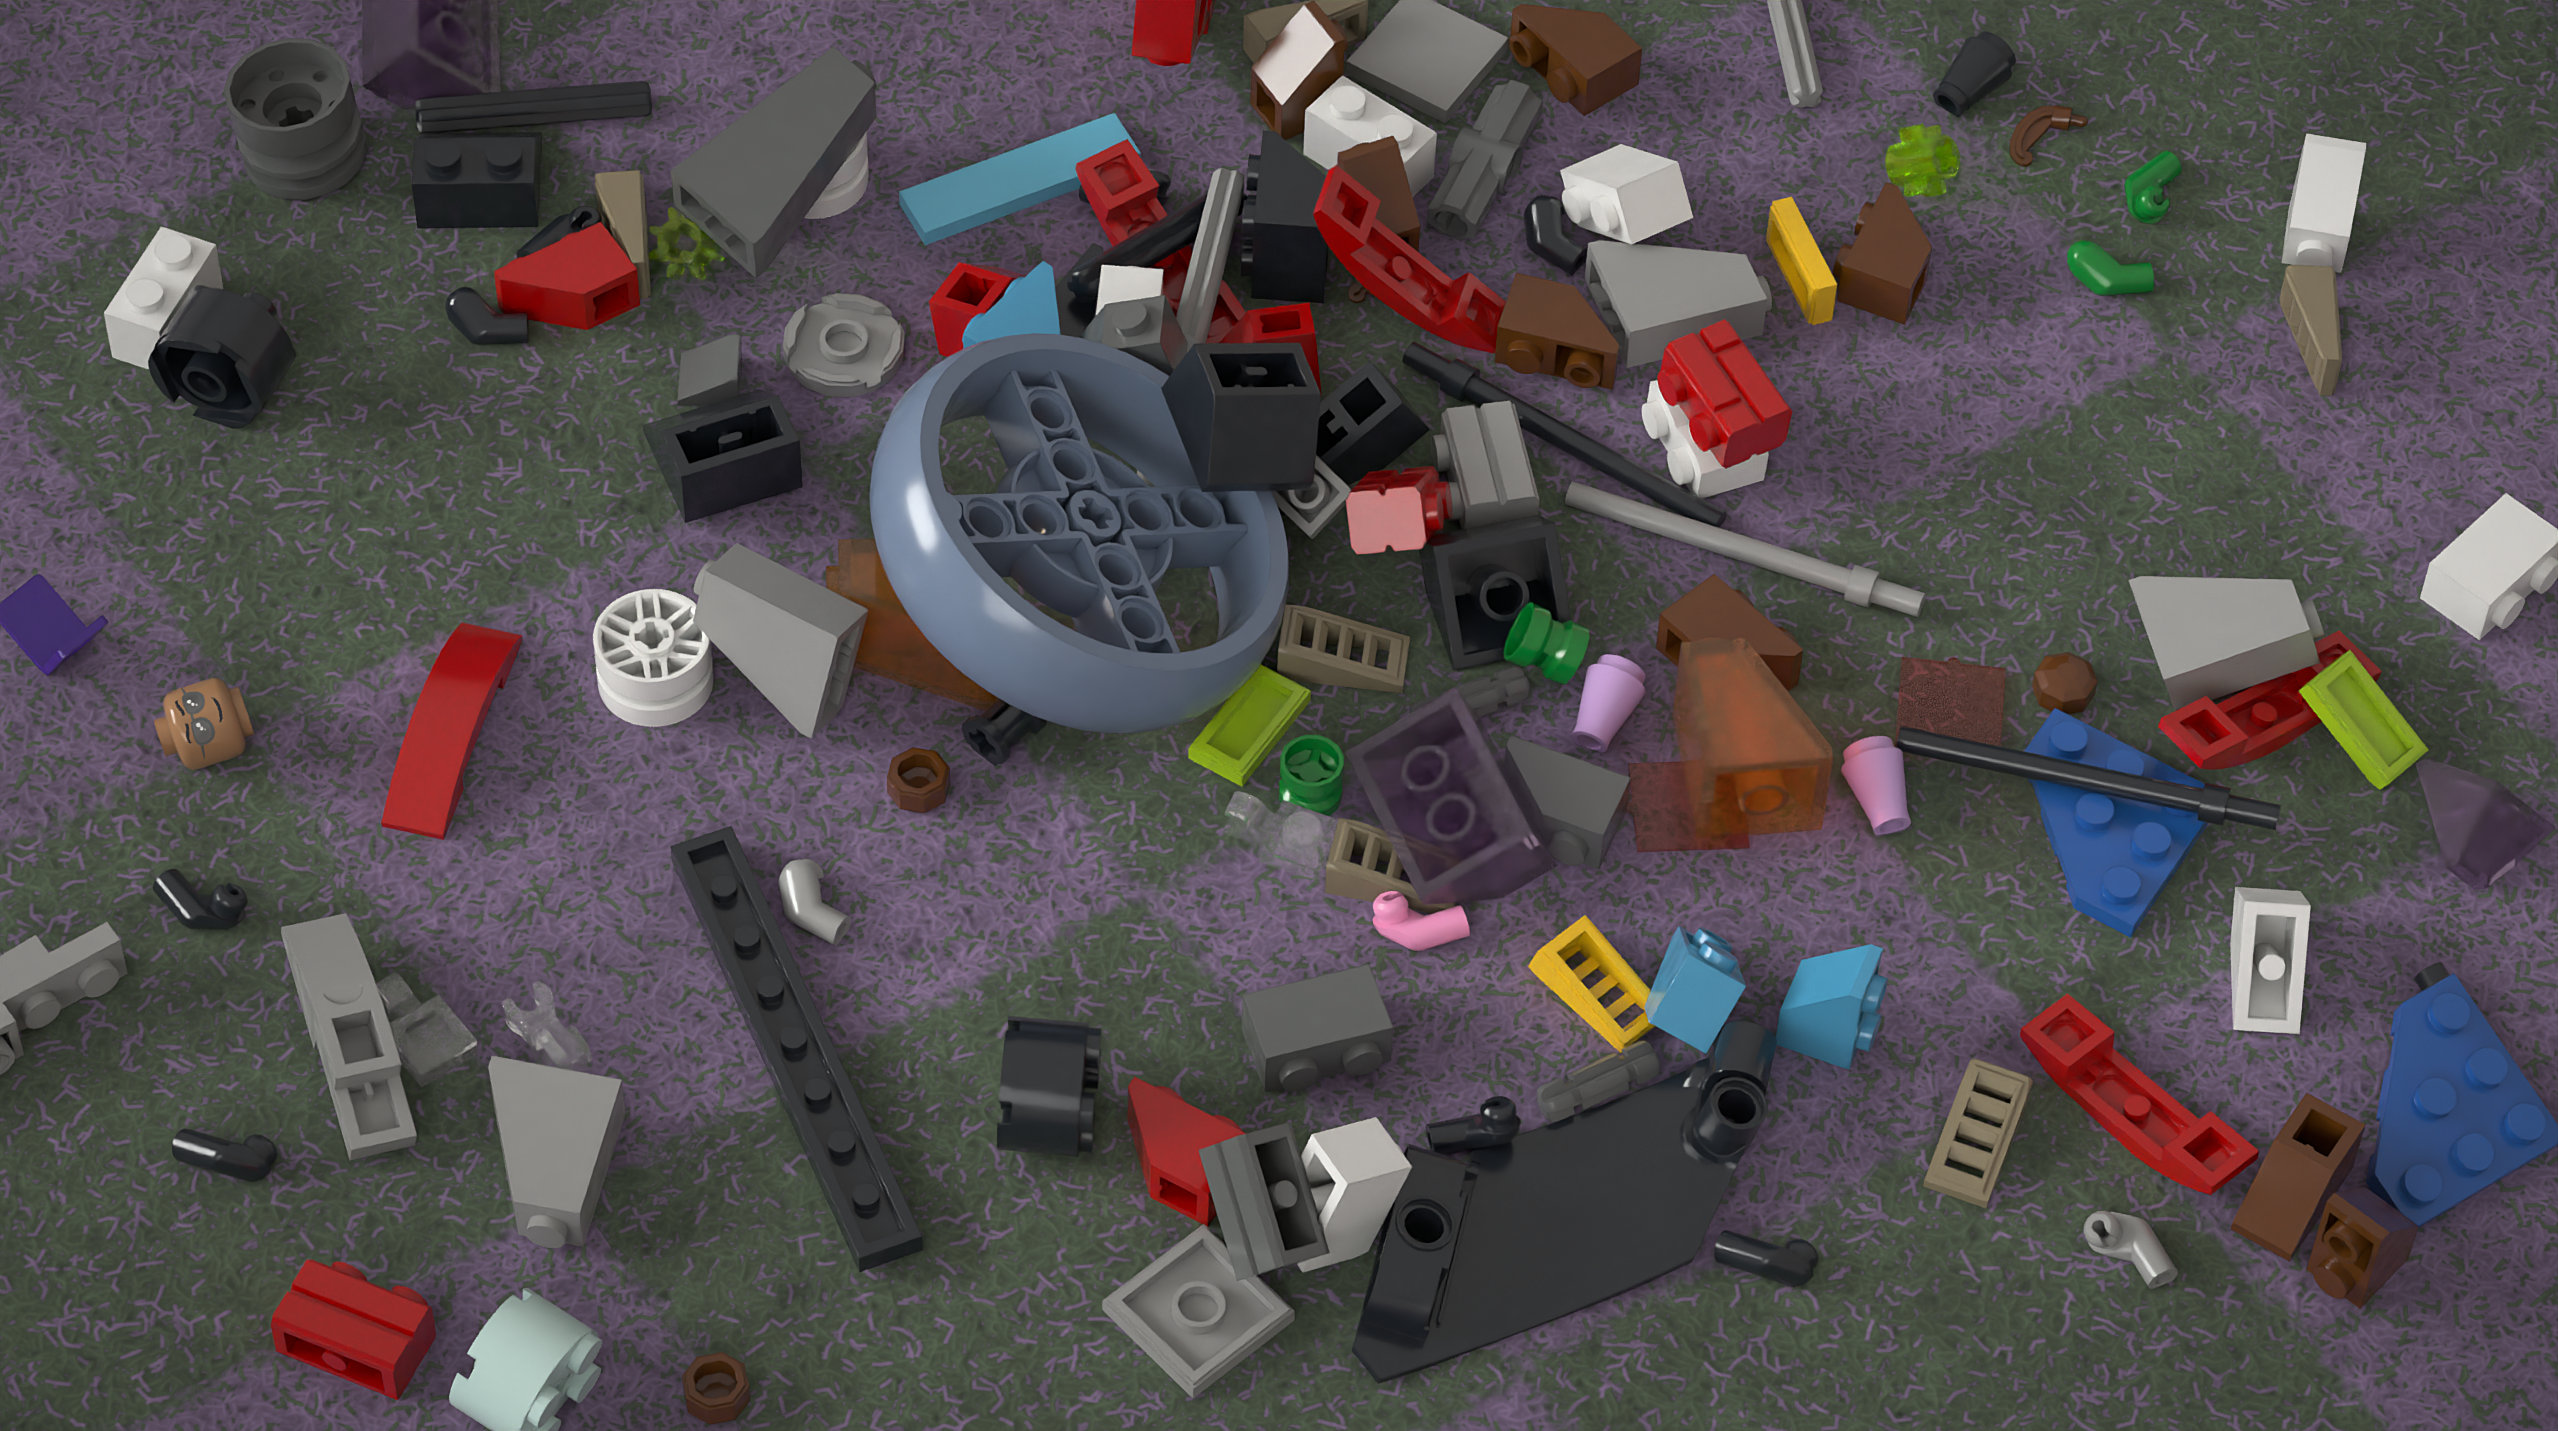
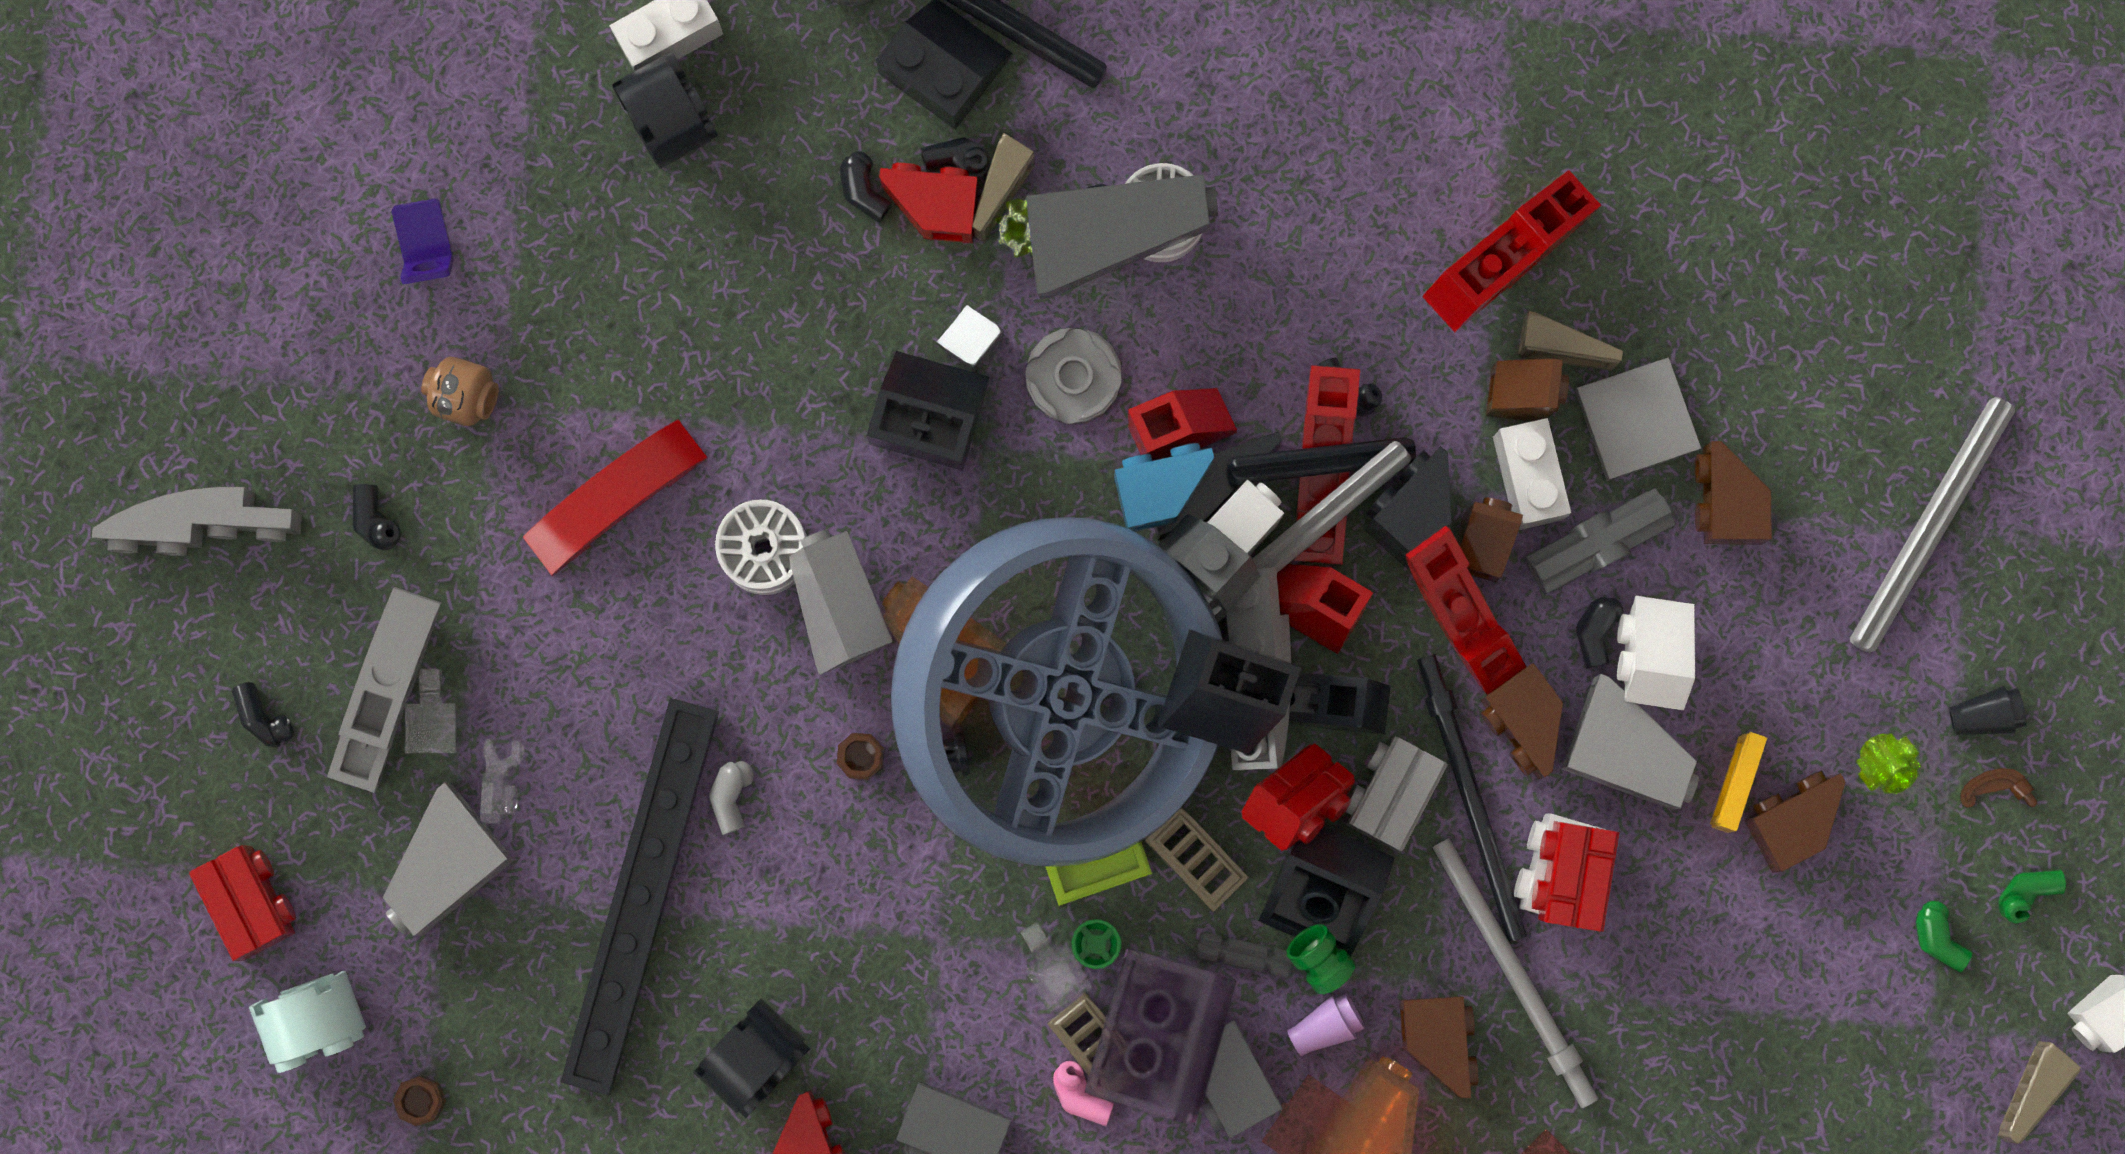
camera: 40 degrees right, 30 degrees up
(1007, 181) = (1289, 323): medium azure tile -> none

